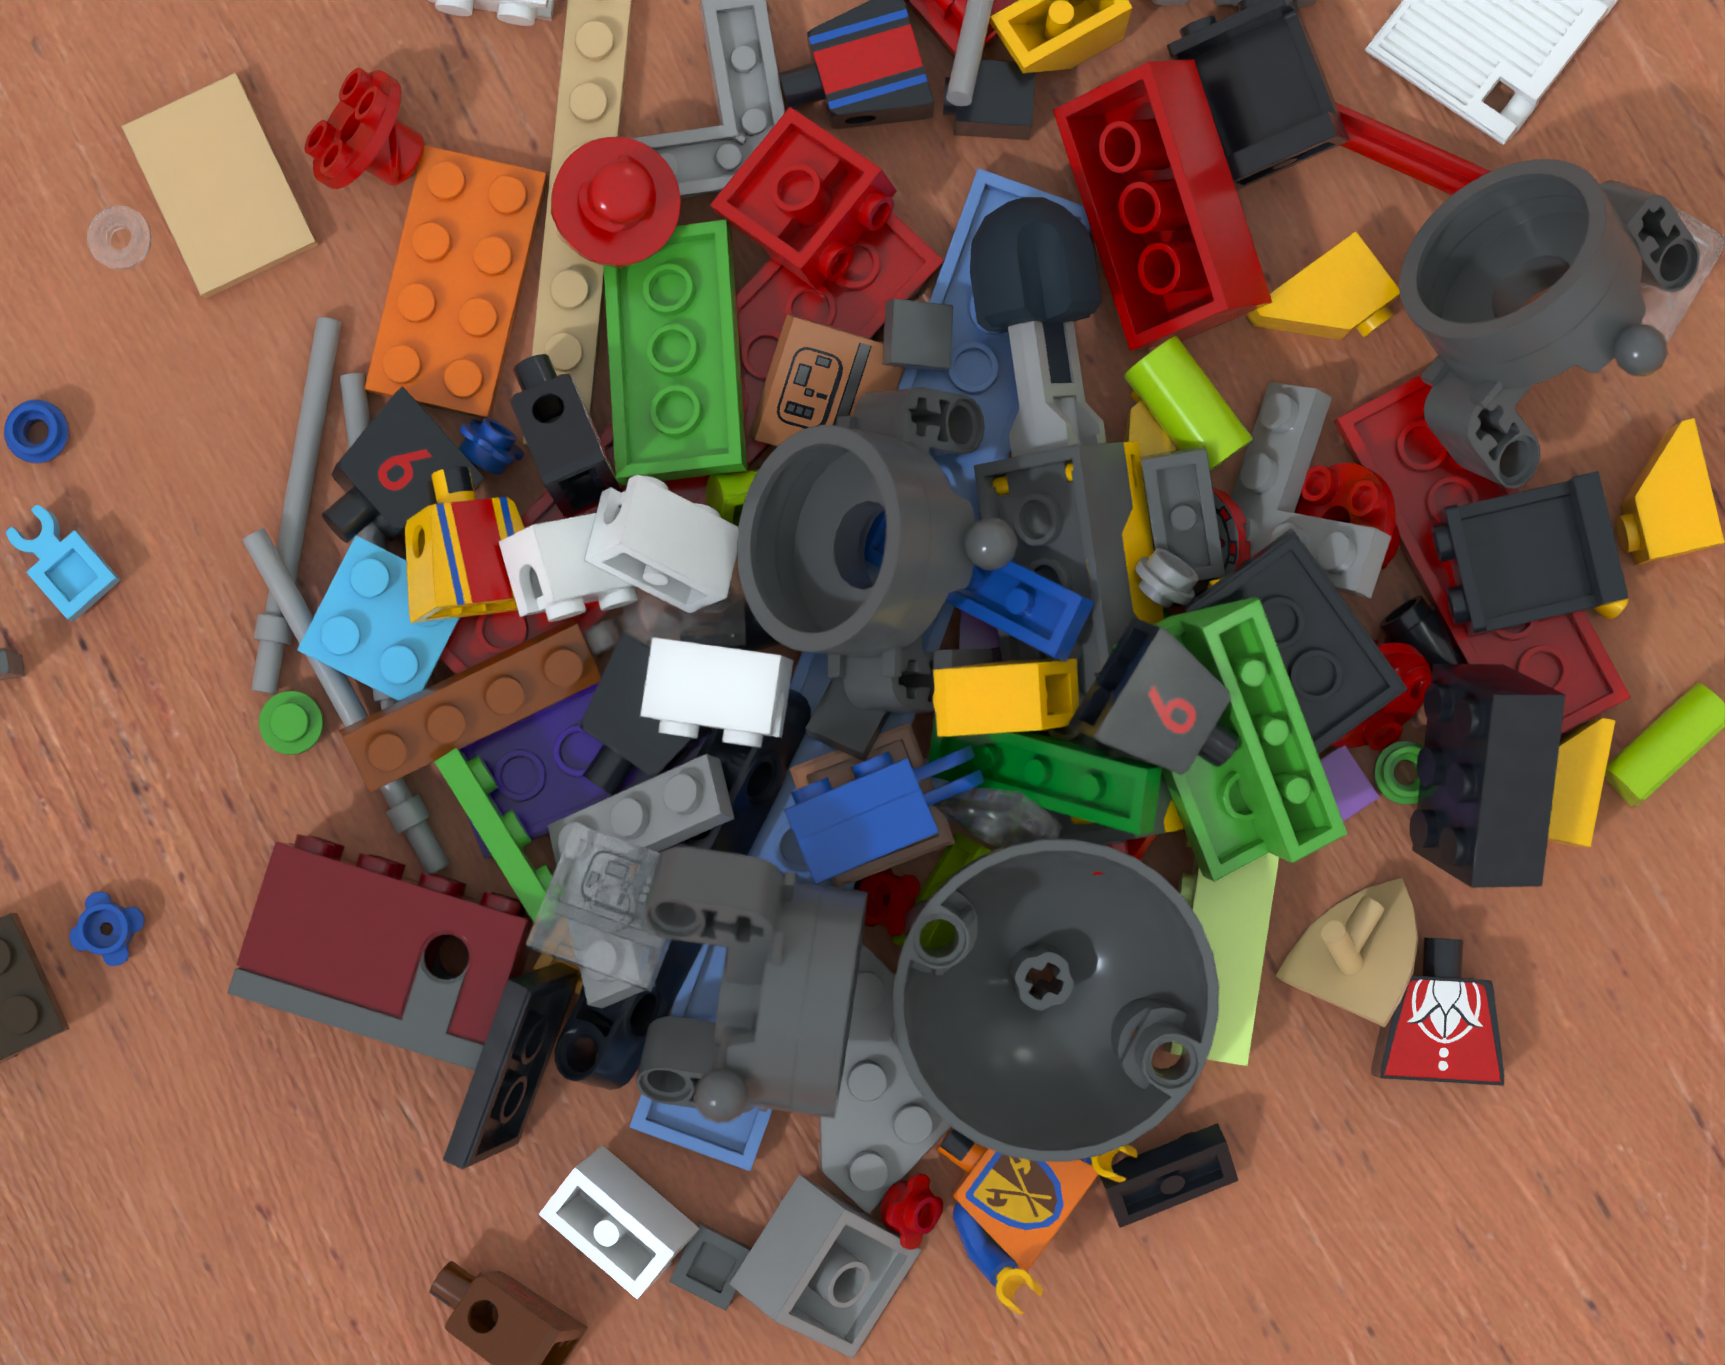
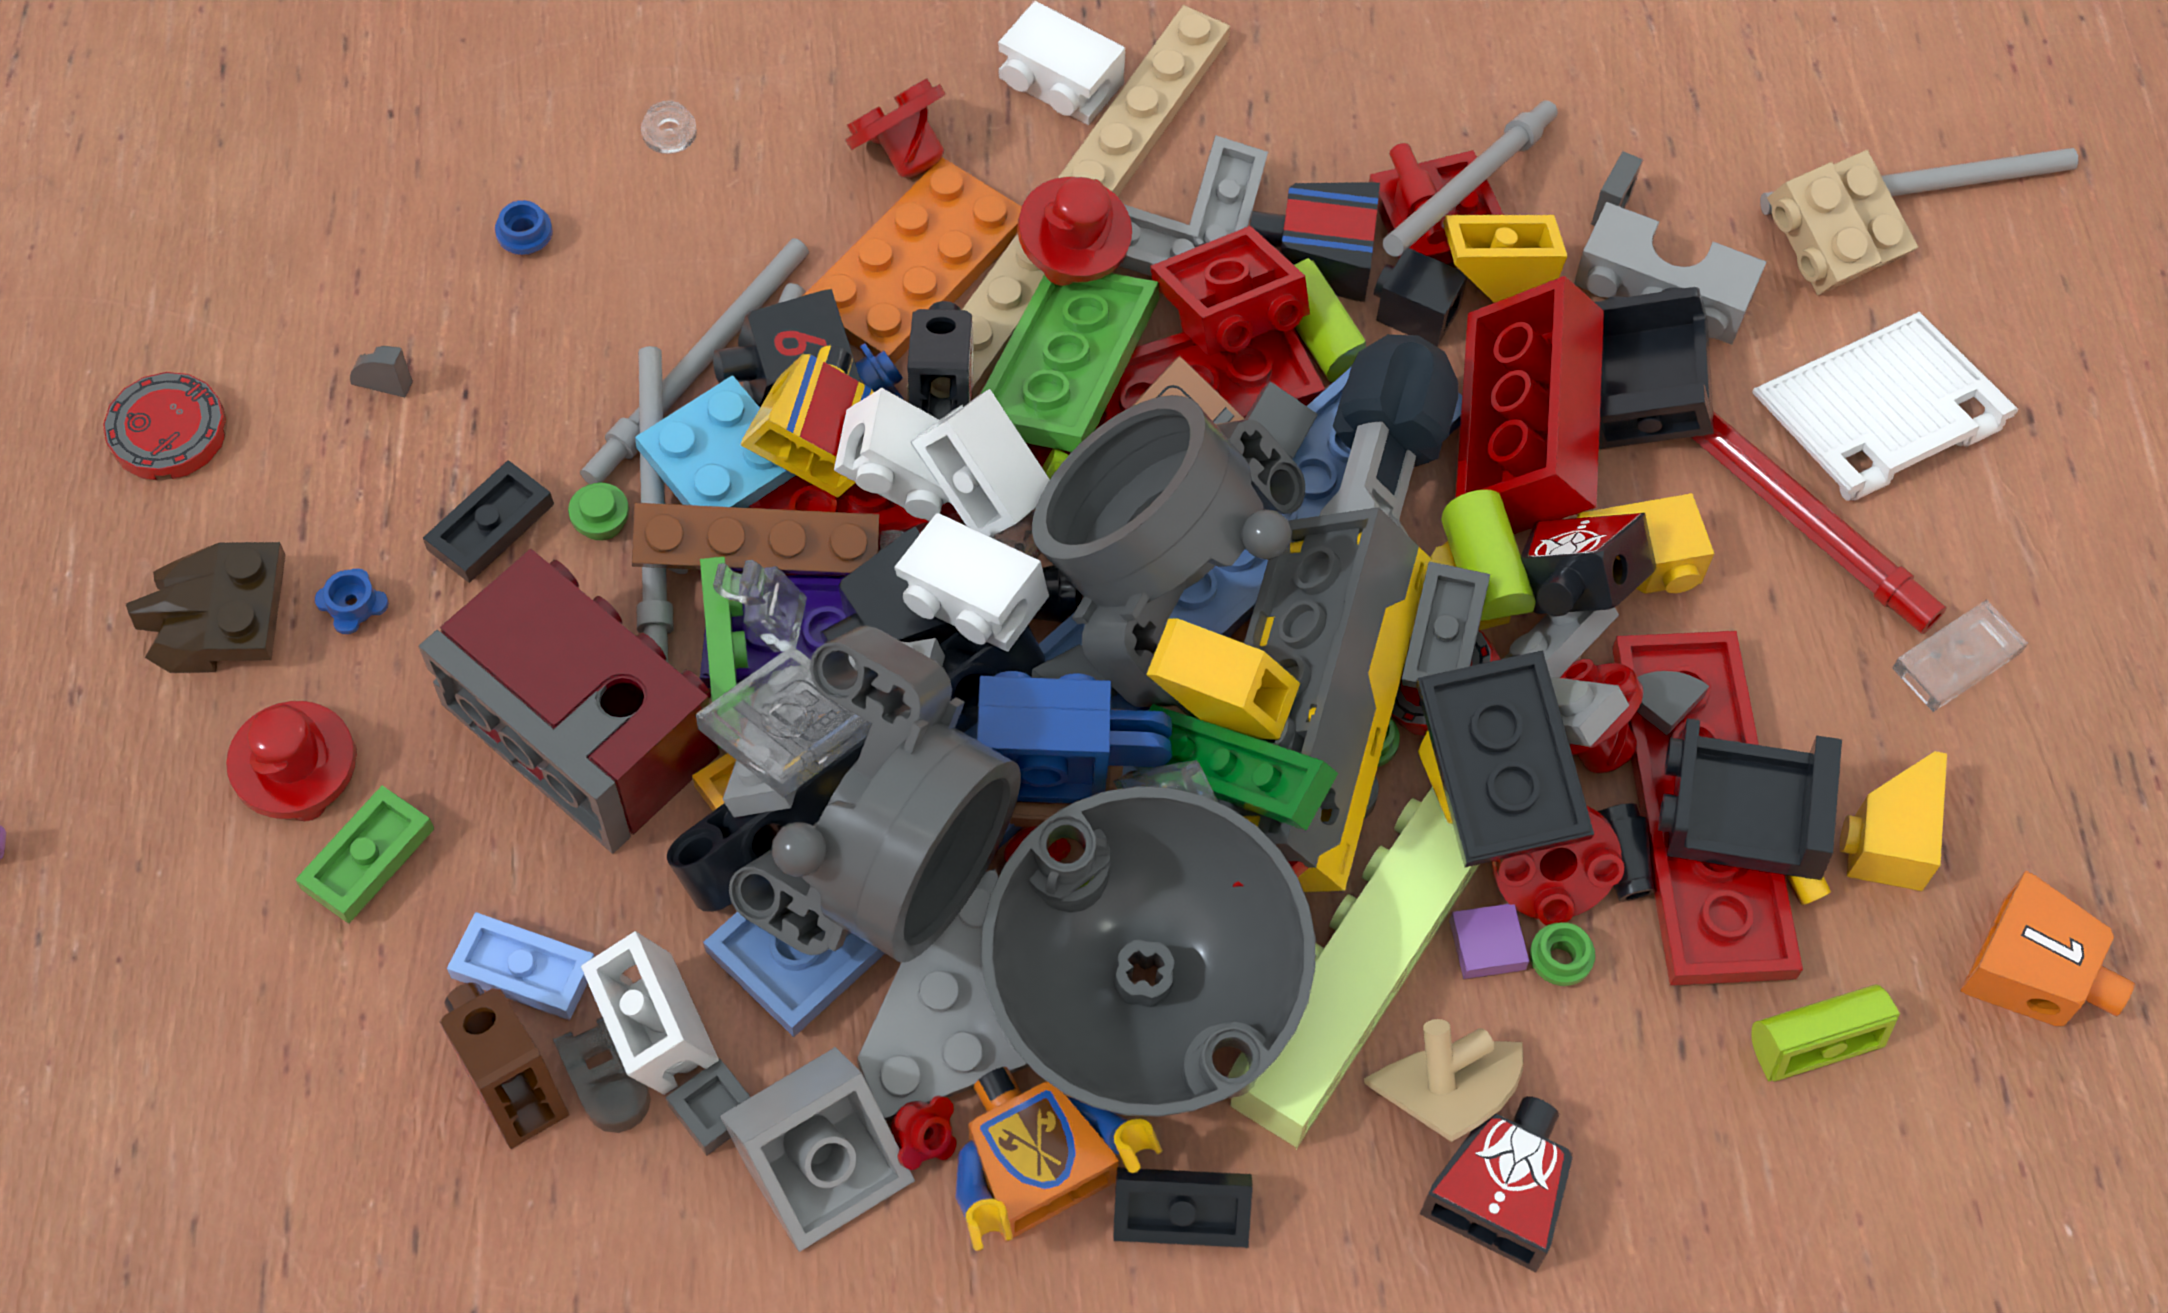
camera: 20 degrees right, 25 degrees down
(68, 568) = (486, 324): medium azure plate -> none
(147, 1117) = (291, 760): none -> red plate
(192, 786) = (488, 521): none -> black plate
(219, 186) = (767, 128): tan tile -> none
(272, 1179) = (365, 854): none -> bright green plate
(475, 1219) = (521, 964): none -> light blue plate
(511, 1064) = (627, 824): black tile -> none
(521, 769) = (771, 602): none -> clear plate
(608, 1302) = (606, 1091): none -> clear smoke plate
(919, 187) = (1328, 327): none -> lime brick
(1011, 600) = (1261, 612): blue plate -> none
(1157, 703) = (1359, 725): black torso -> none
(1166, 578) = (1409, 658): light grey plate -> none
(1273, 785) = (1411, 806): bright green slope -> none
(1282, 369) = (1576, 563): none -> black torso
(1413, 472) = (1669, 697): none -> dark grey tile
(1487, 774) = (1640, 952): black brick -> none
(1499, 248) = (1828, 561): dark grey piece -> none
(1580, 782) = (1702, 1021): yellow slope -> none

